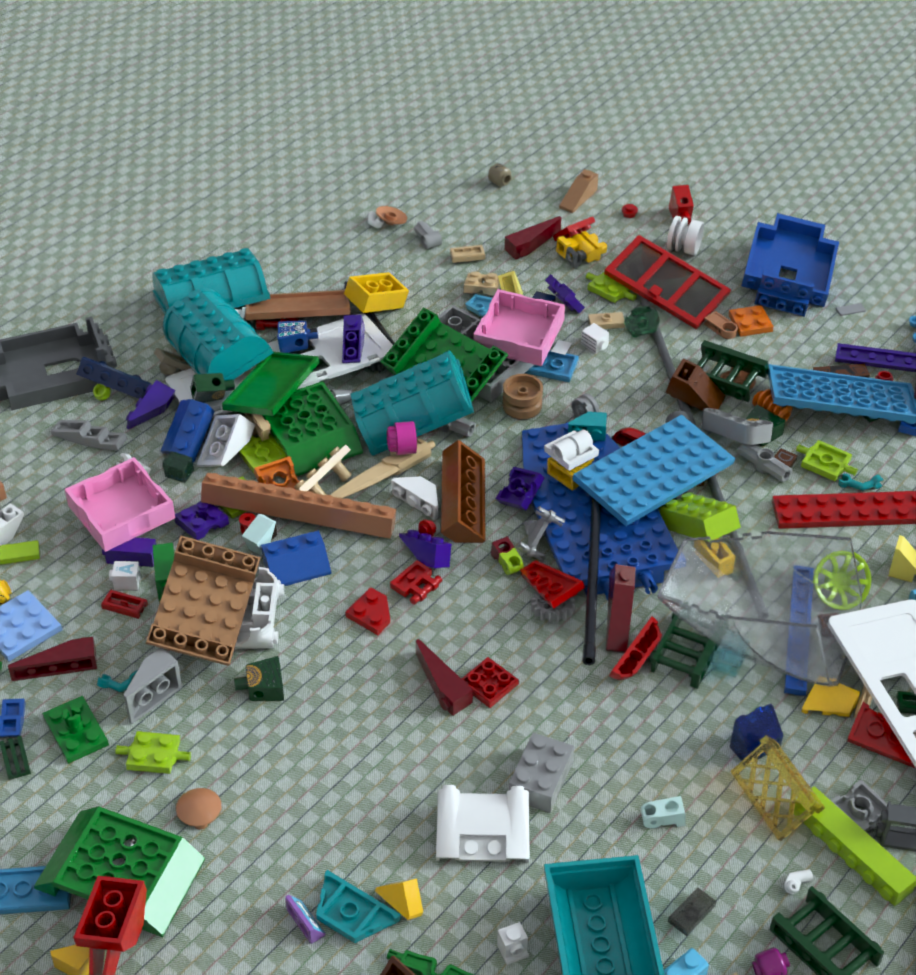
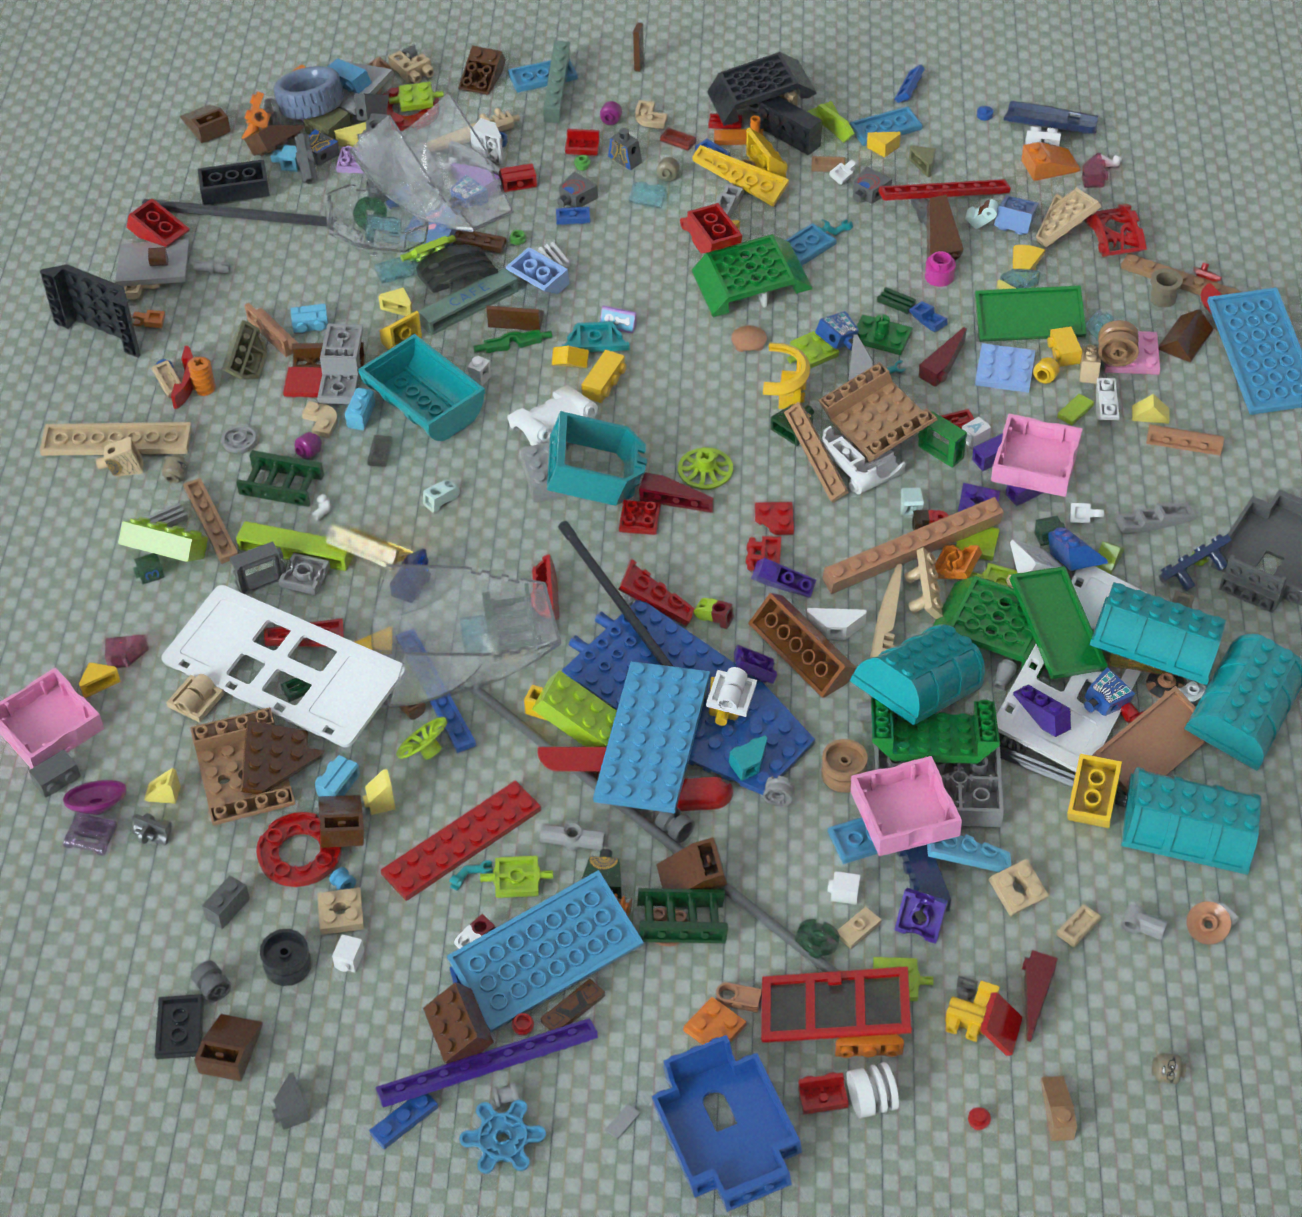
camera: 145 degrees right, 5 degrees up
(118, 738) = (837, 330): none -> blue torso
(154, 403) = (1140, 566): dark purple slope -> none
(155, 429) = (1112, 553): none -> lime slope
(210, 387) = (1096, 577): dark green torso -> none
(222, 708) = (791, 382): none -> yellow piece
(282, 627) = (816, 452): none -> medium nougat plate
(297, 558) = (871, 515): blue slope -> none
(330, 252) = (1191, 821): none -> teal container
(383, 691) = (705, 463): none -> lime wheel
(387, 850) = (603, 376): none -> yellow brick
(402, 438) = (887, 632): dark pink piece -> none
(427, 527) = (800, 598): red plate -> none
(510, 283) = (981, 899): light yellow slope -> none
(522, 746) = (600, 436): none -> teal container
(535, 531) = (700, 629): light grey axle -> none
(561, 347) = (869, 862): white sticker -> none
(620, 607) = (586, 606): dark red slope -> none
(684, 209) = (921, 1149): red torso -> none
(713, 257) = (822, 1093): none -> red bracket
(736, 427) = (623, 844): light grey beam -> none
(744, 501) = (572, 758): none -> red brick
(786, 457) = (558, 858): reddish brown tile -> none
(884, 438) = (476, 929): none -> leg

